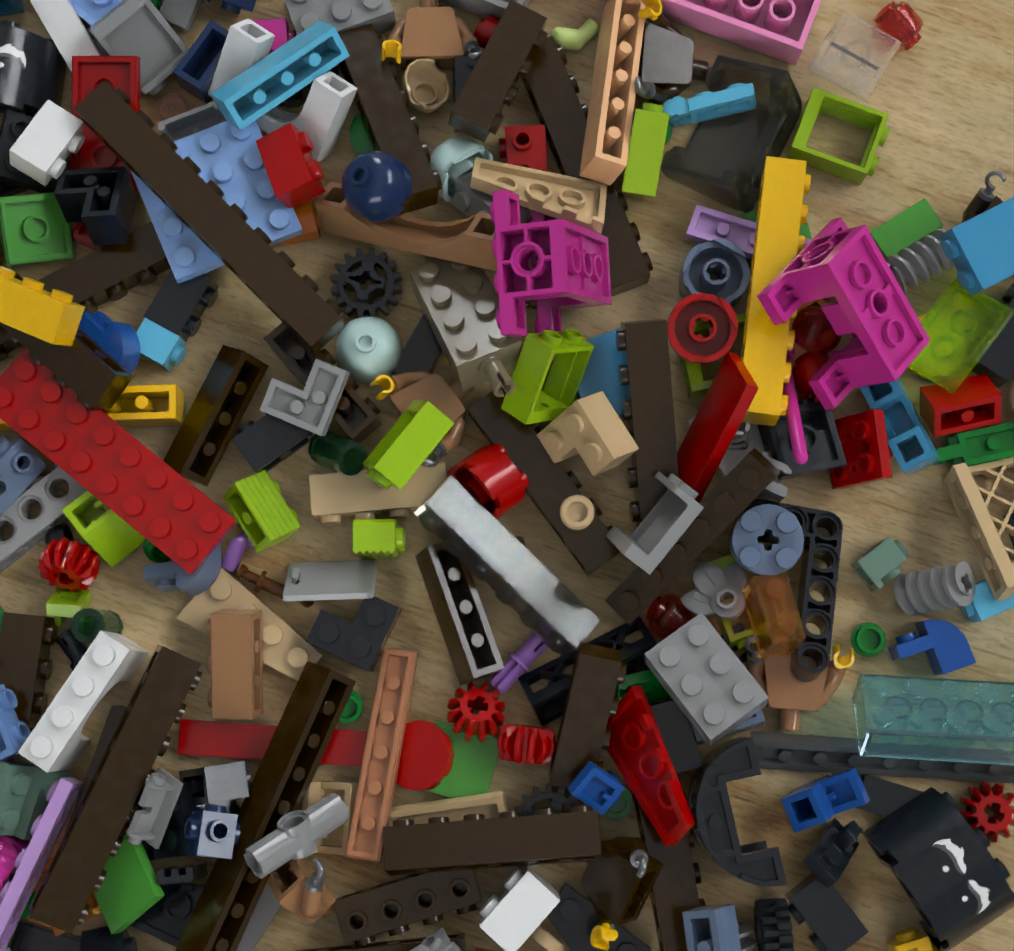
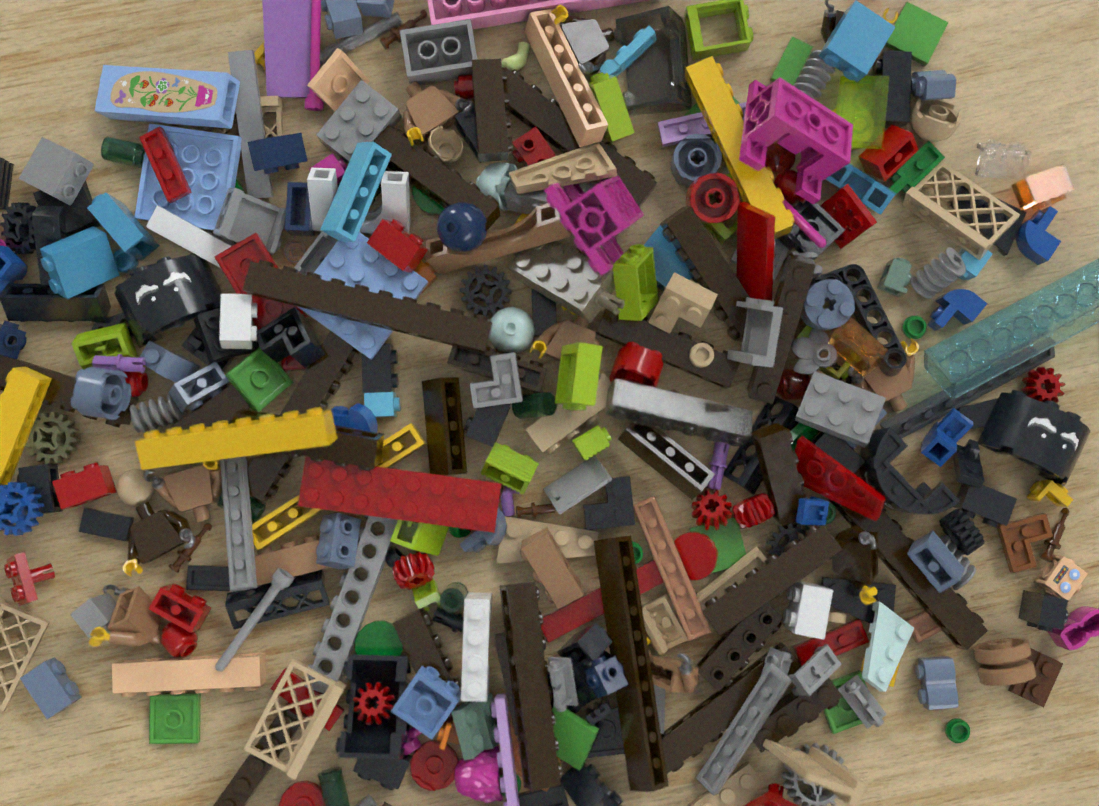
camera: 40 degrees left, 5 degrees up
(296, 835) = (655, 646): light grey piece -> none

